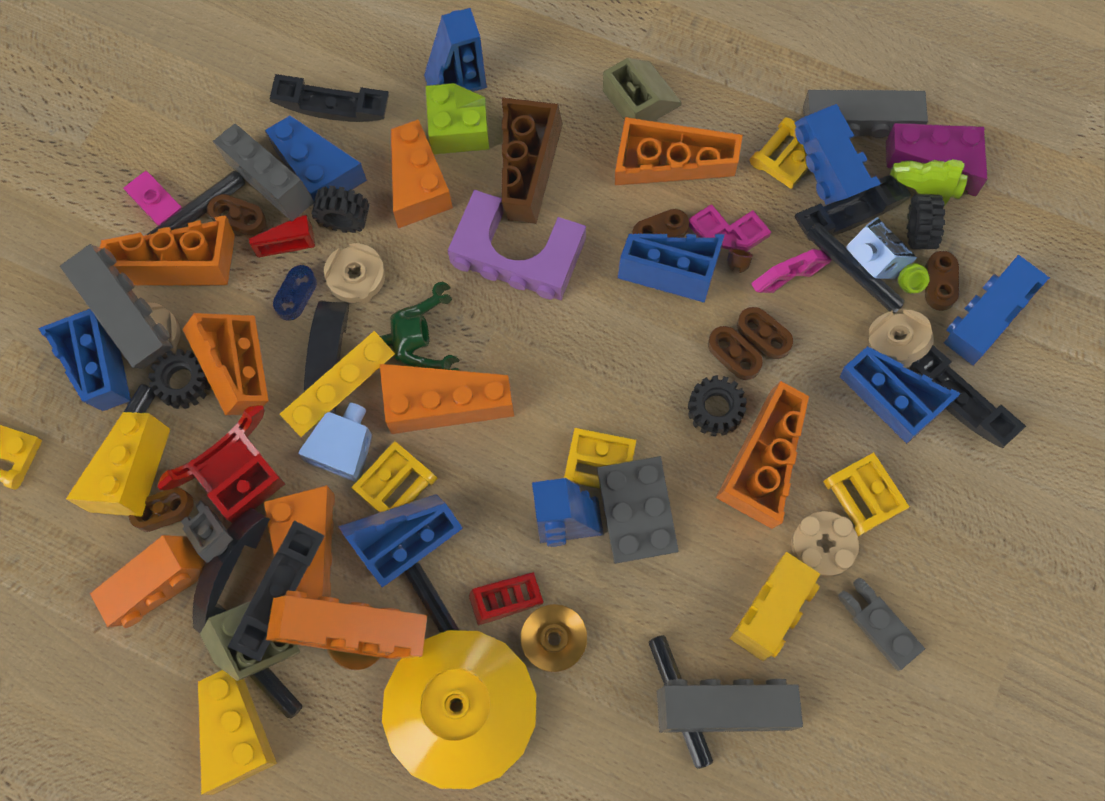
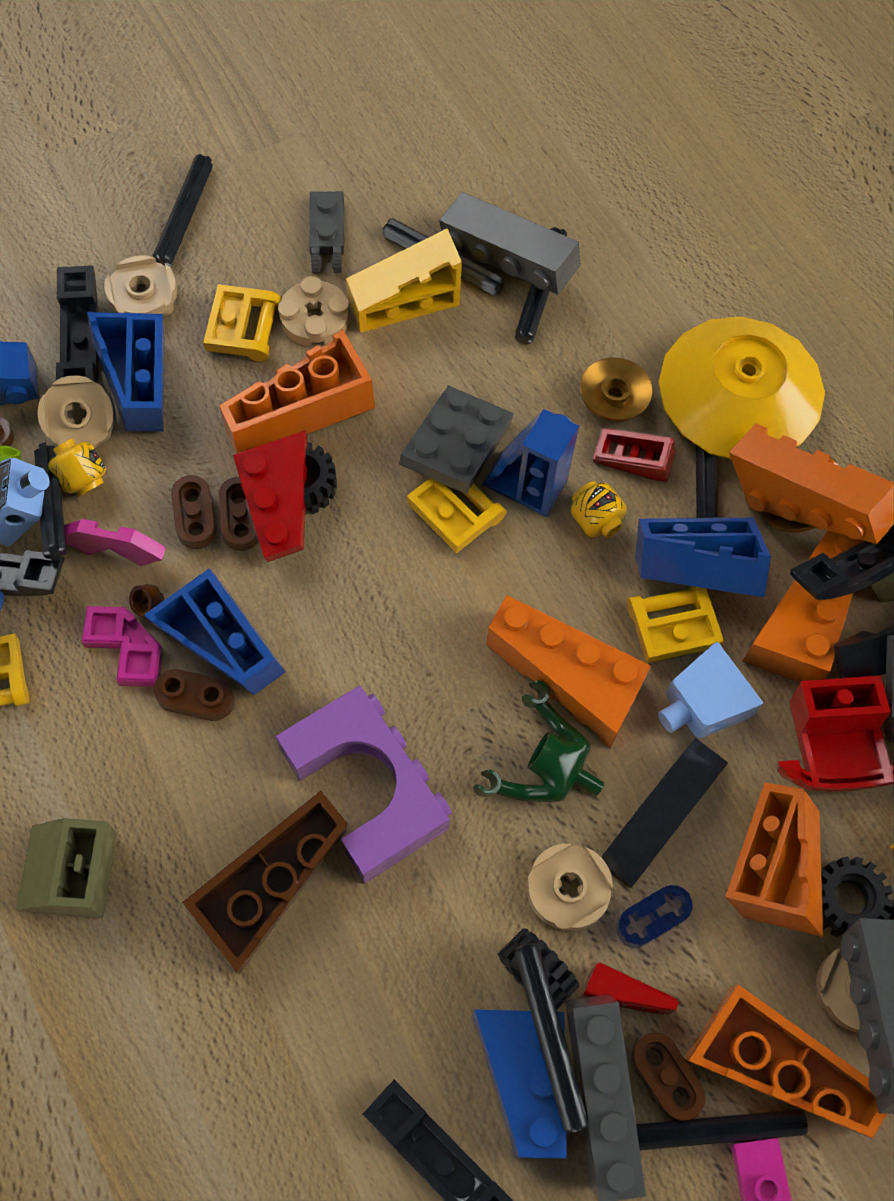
camera: 150 degrees left, 5 degrees down
(307, 166) = (551, 1038): none -> black axle
(337, 384) = (674, 755): yellow plate -> none
(416, 177) = (412, 957): orange wedge -> none
(456, 119) = (306, 1002): lime slope -> none
(457, 53) = (249, 1074): blue wedge -> none
(499, 528) = (598, 509): none -> yellow head
(674, 153) = (113, 766): orange wedge -> none
(724, 374) = (274, 490): none -> red wing
(776, 669) = (471, 271): none -> black axle
(862, 302) = (77, 467): none -> yellow head
(943, 474) = (136, 271): none -> tan plate
(1001, 560) = (183, 210): none -> black axle

